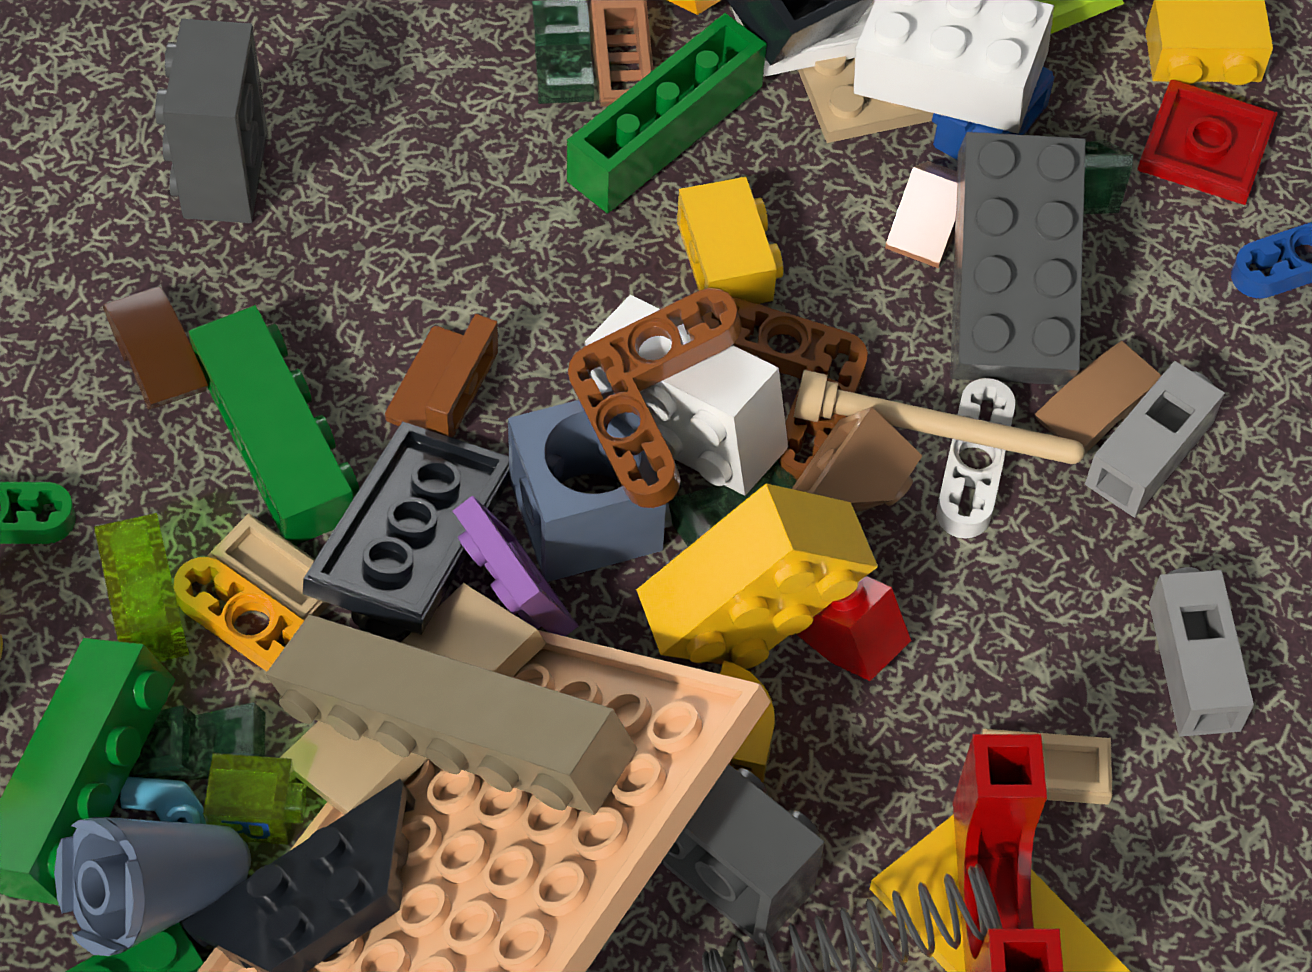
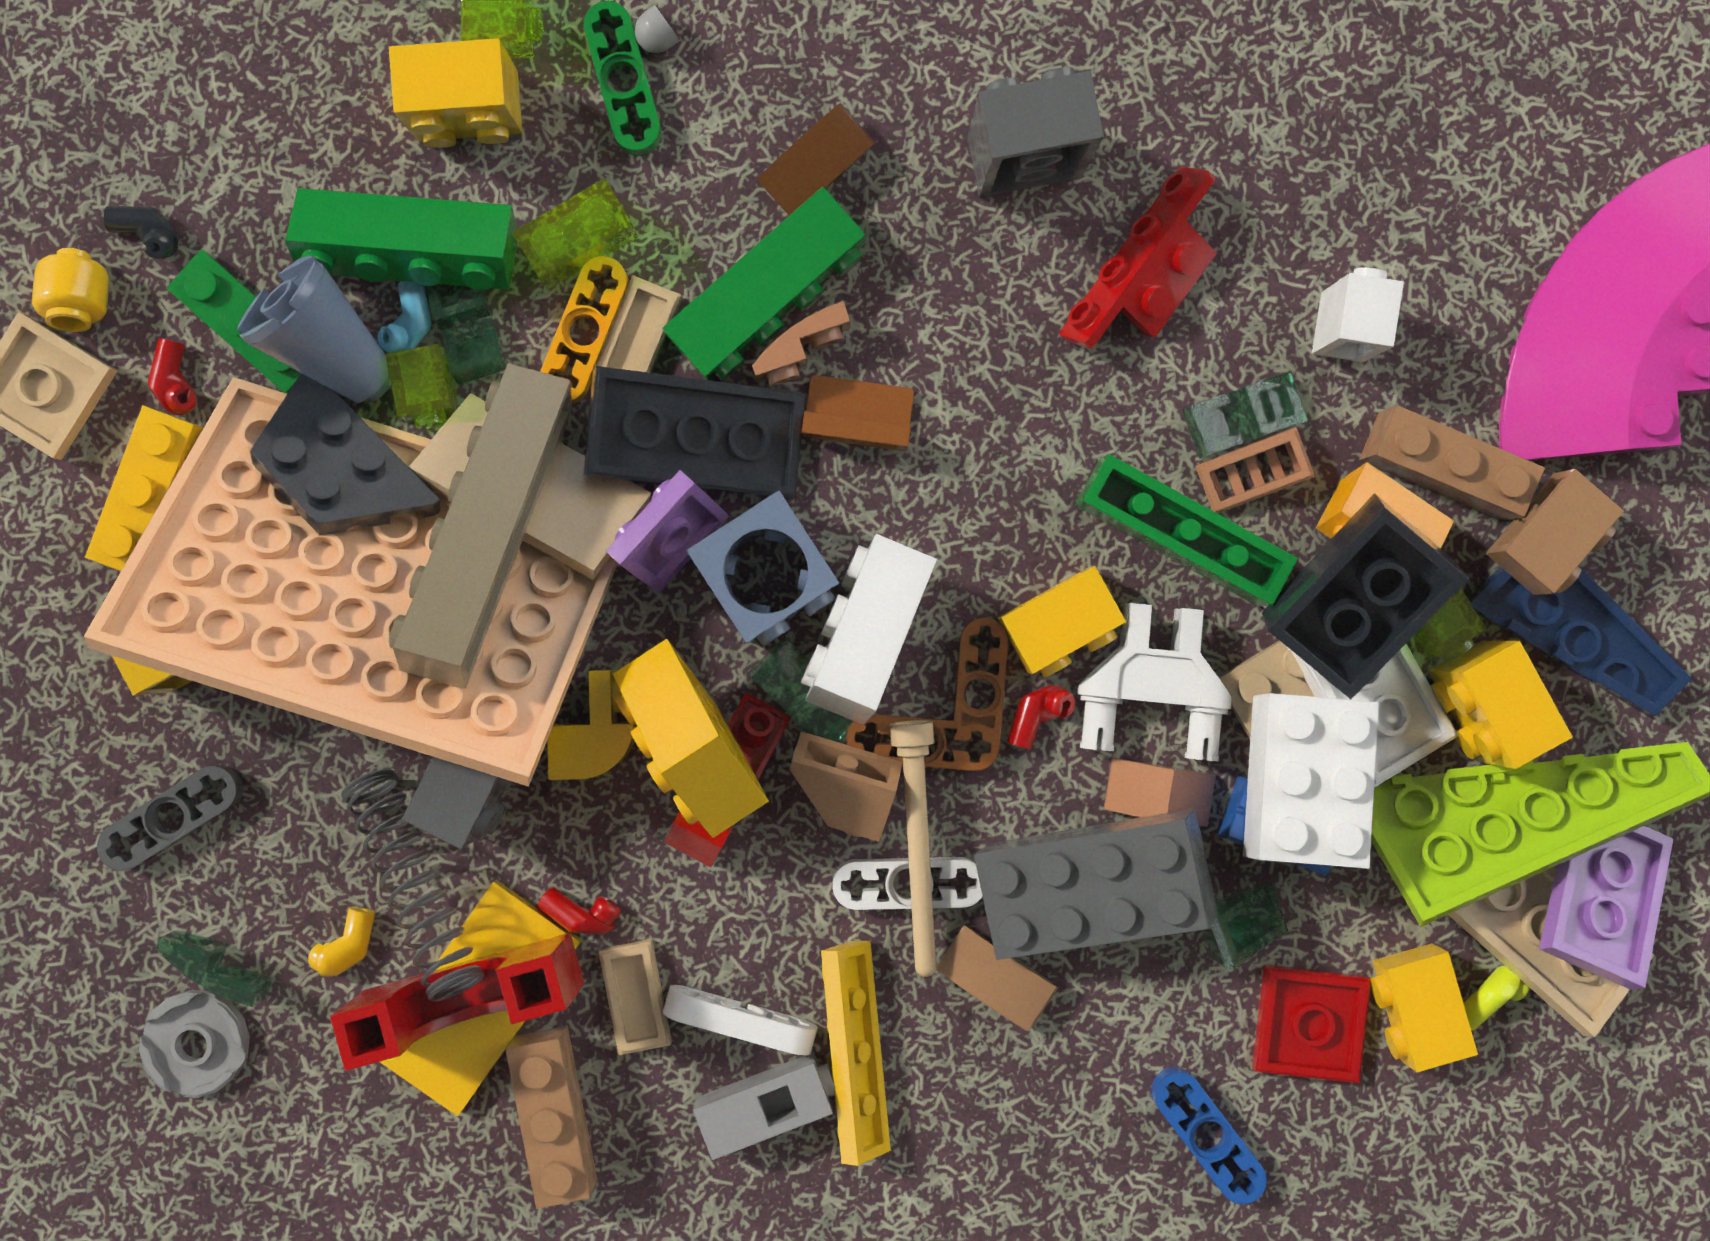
camera: 75 degrees right, 30 degrees up
(349, 408) = (786, 355): none -> nougat slope
(381, 89) = (1151, 267): none -> red bracket
(630, 374) = (836, 583): dark orange beam -> none
(801, 172) = (1156, 676): none -> white connector
(815, 295) = (1036, 709): none -> red arm
(934, 800) = (580, 919): none -> red arm
(1094, 655) = (749, 1024): none -> white beam
(1128, 545) = (855, 1052): none -> yellow plate
(1154, 438) = (965, 1034): light grey brick -> none
(1172, 877) = (551, 1117): none -> medium nougat brick

